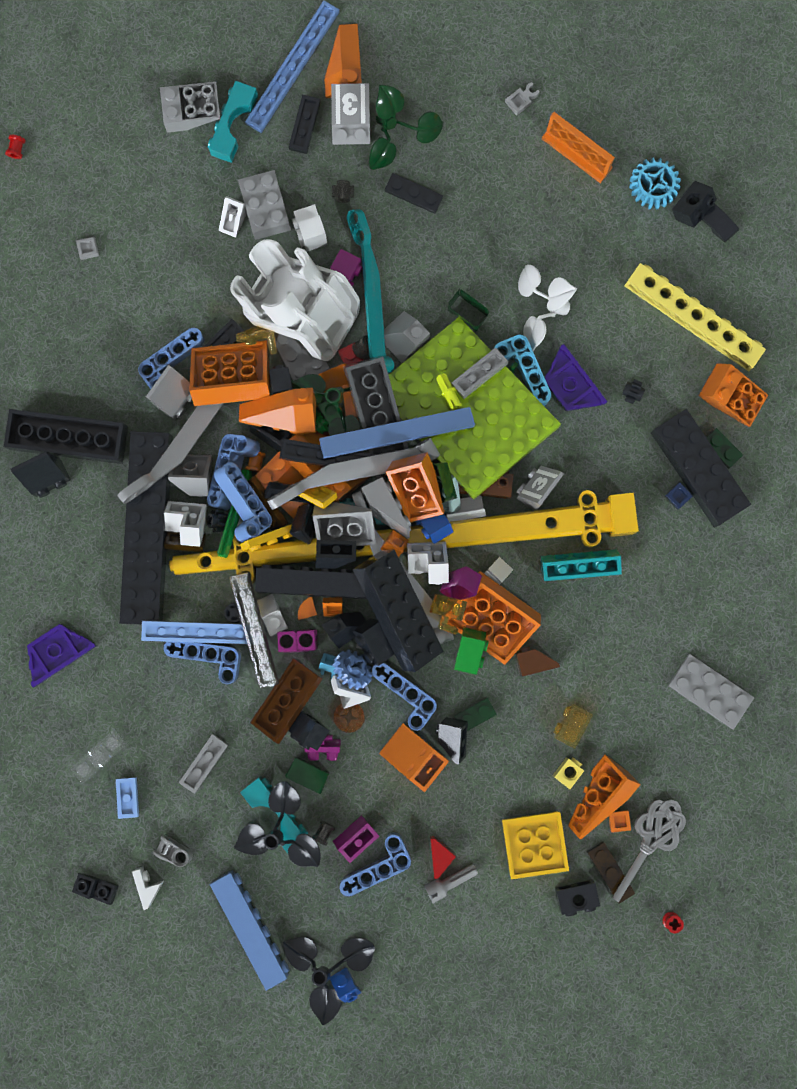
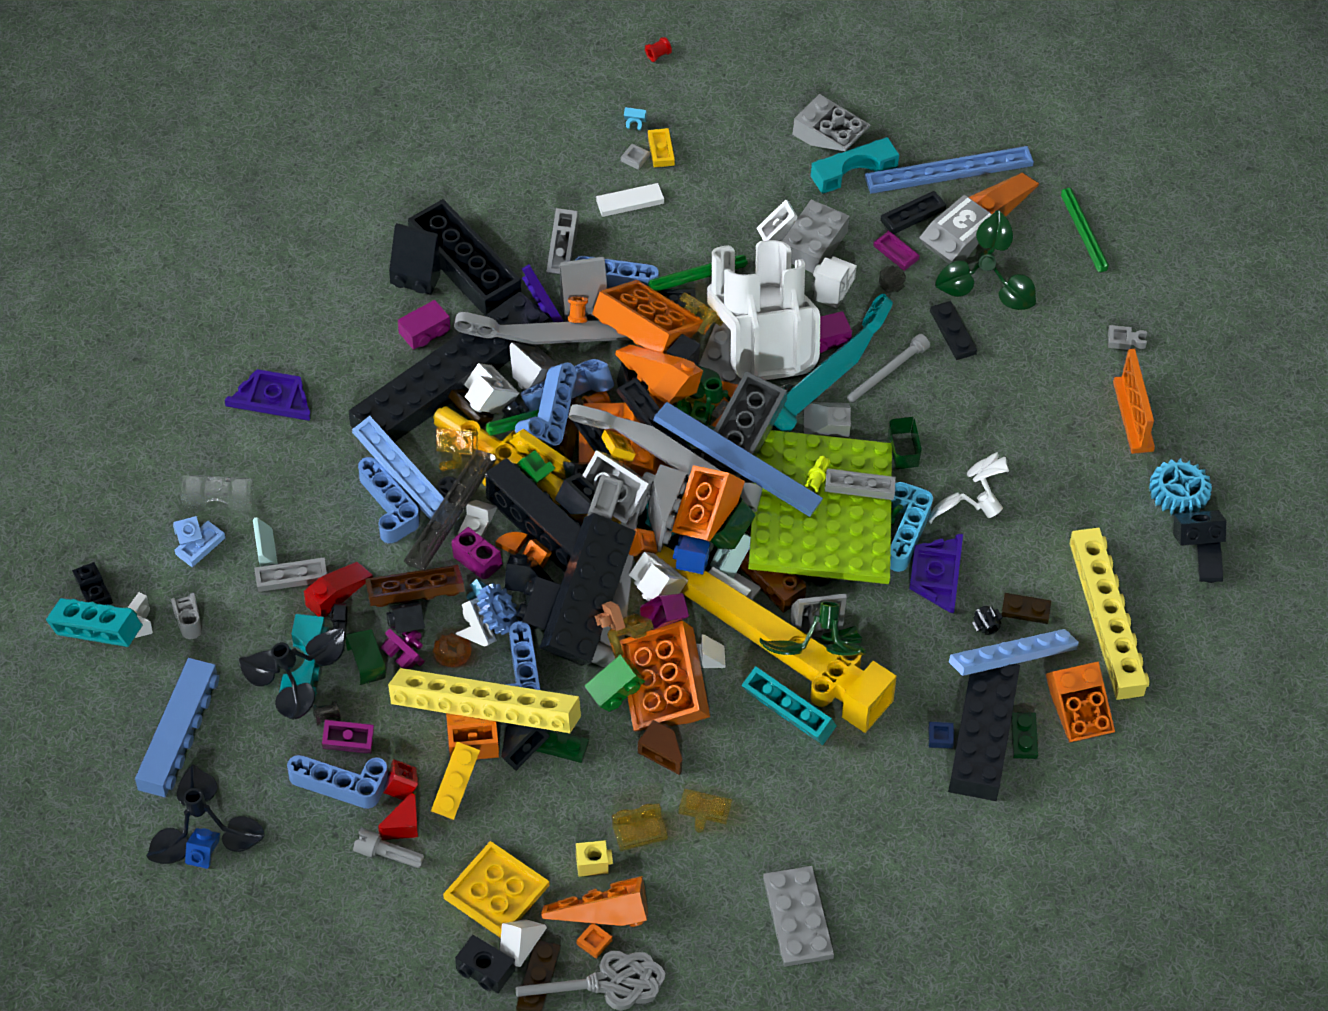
camera: 40 degrees right, 30 degrees down
(57, 216) = (635, 115): none -> medium azure tile
(94, 510) = (424, 324): none -> magenta brick
(97, 226) = (661, 147): none -> yellow plate
(110, 798) = (187, 530): none -> light blue bracket
(113, 362) = (562, 239): none -> light grey slope
(119, 286) = (630, 200): none -> white tile
(130, 920) = (94, 622): none -> teal brick
(146, 420) = (540, 294): none -> dark purple wing
(165, 758) = (265, 543): none -> light aqua slope
(182, 411) = (577, 309): none -> orange bush
(205, 577) = (456, 442): none -> clear yellow plate
(220, 305) = (690, 275): none -> green axle
(240, 744) = (335, 588): none -> red slope
(267, 767) = (339, 617): none -> black piece
(279, 555) = (535, 467): none -> green panel
(321, 164) = (896, 250): none -> magenta tile
(352, 768) = (485, 700): none -> light yellow brick
(354, 545) = (606, 496): none -> light grey tile
(405, 226) = (918, 345): none -> light grey piece
(412, 831) = (401, 780): none -> red slope
(419, 34) = (1084, 230): none -> green axle
(434, 619) = (611, 617): none -> nougat tile
(446, 805) = (455, 780): none -> yellow plate
(566, 493) = (844, 639): none -> dark green plant
(580, 862) = (520, 938): none -> white slope
(594, 674) = (704, 808): none -> clear yellow plate
(643, 358) = (1026, 608): none -> dark brown plate
(675, 404) = (1013, 652): none -> light blue plate

